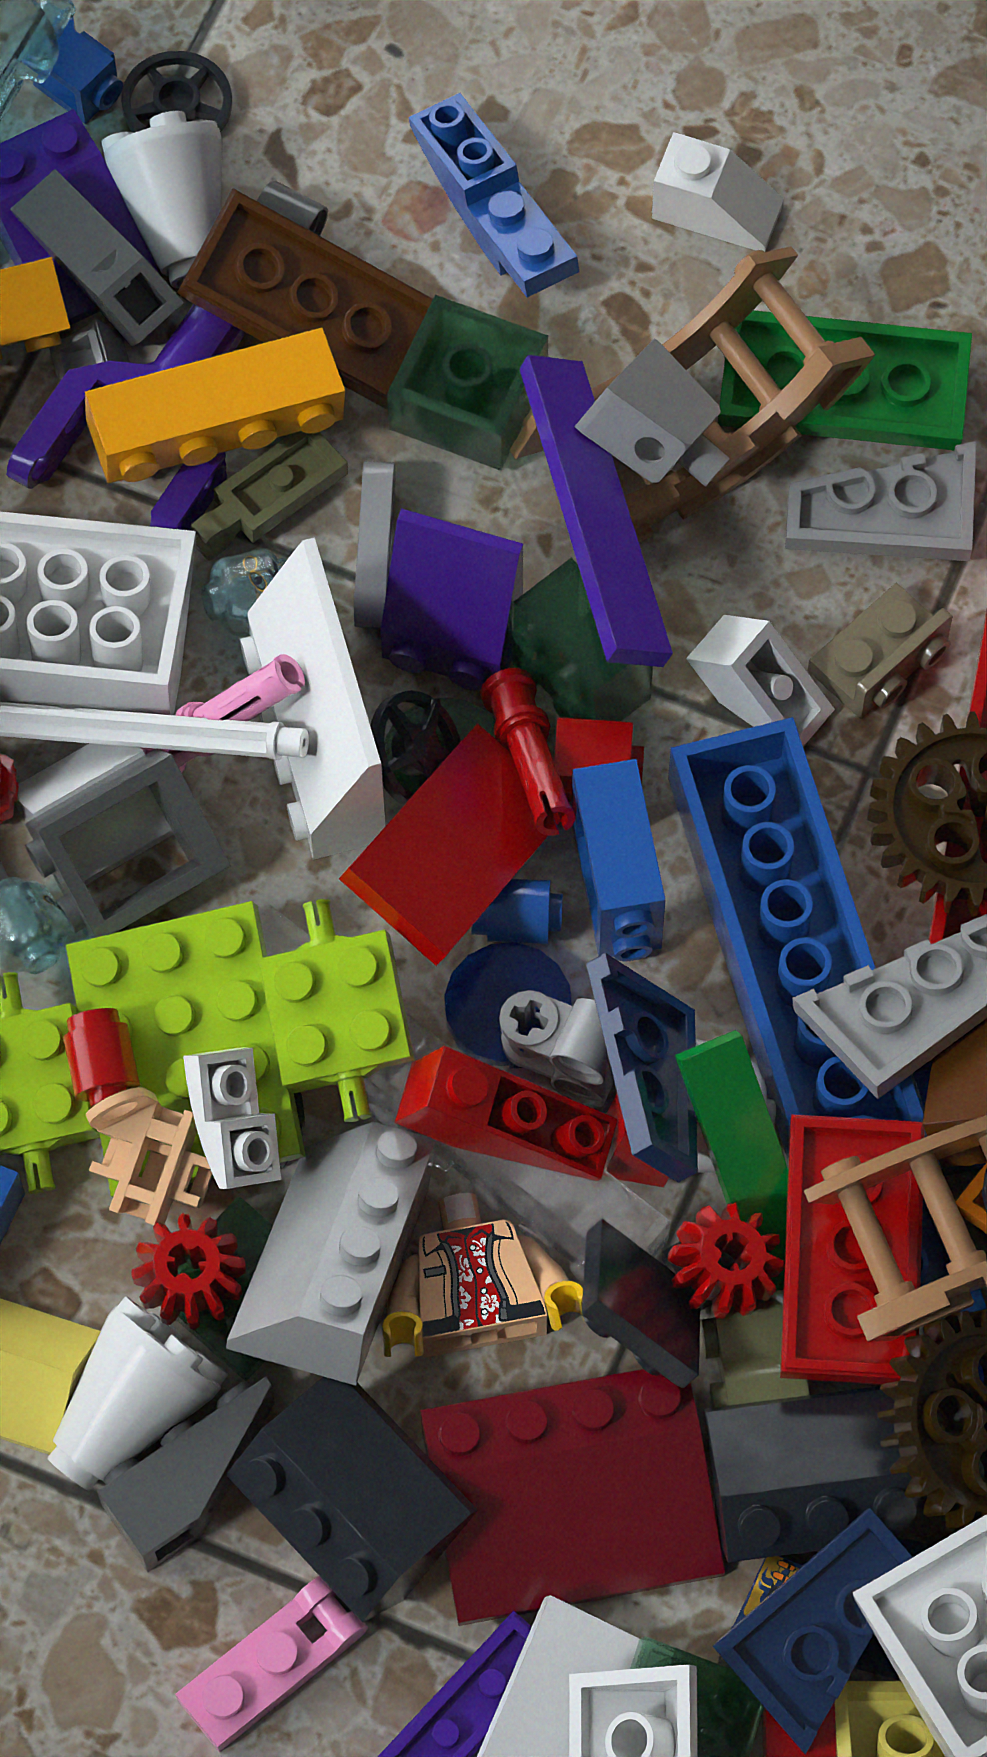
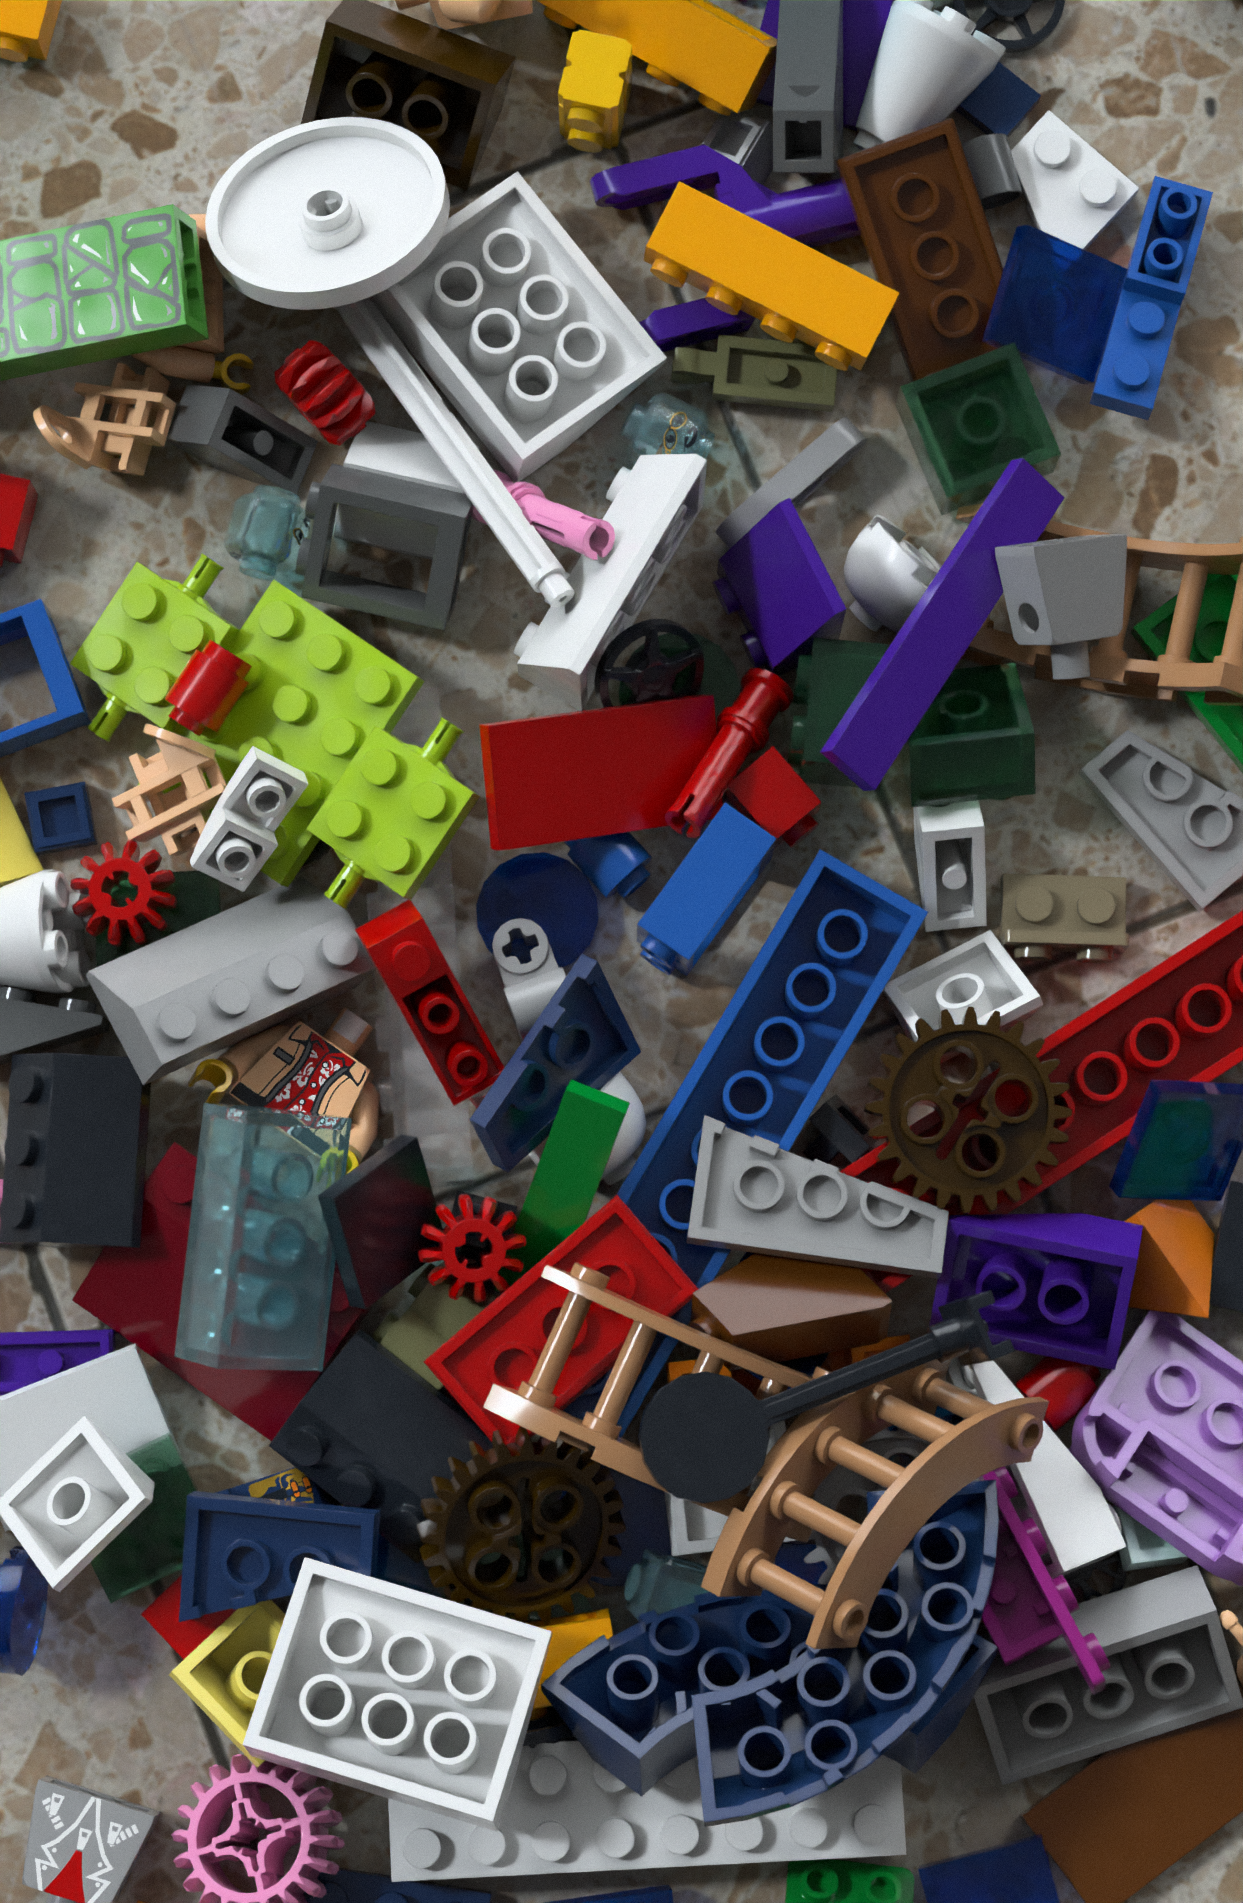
camera: 45 degrees right, 15 degrees up
(75, 1281) = (61, 818): none -> dark blue tile
(246, 168) = (999, 102): none -> dark blue tile
(357, 182) = (1068, 183): none -> white wing
(429, 252) = (1055, 304): none -> clear blue tile
(524, 519) = (886, 575): none -> white cylinder
(566, 1399) = (259, 1239): none -> clear light blue slope
(703, 575) = (972, 741): none -> clear green brick
(856, 753) = (968, 976): none -> white slope
(893, 935) = (840, 1131): none -> black tile

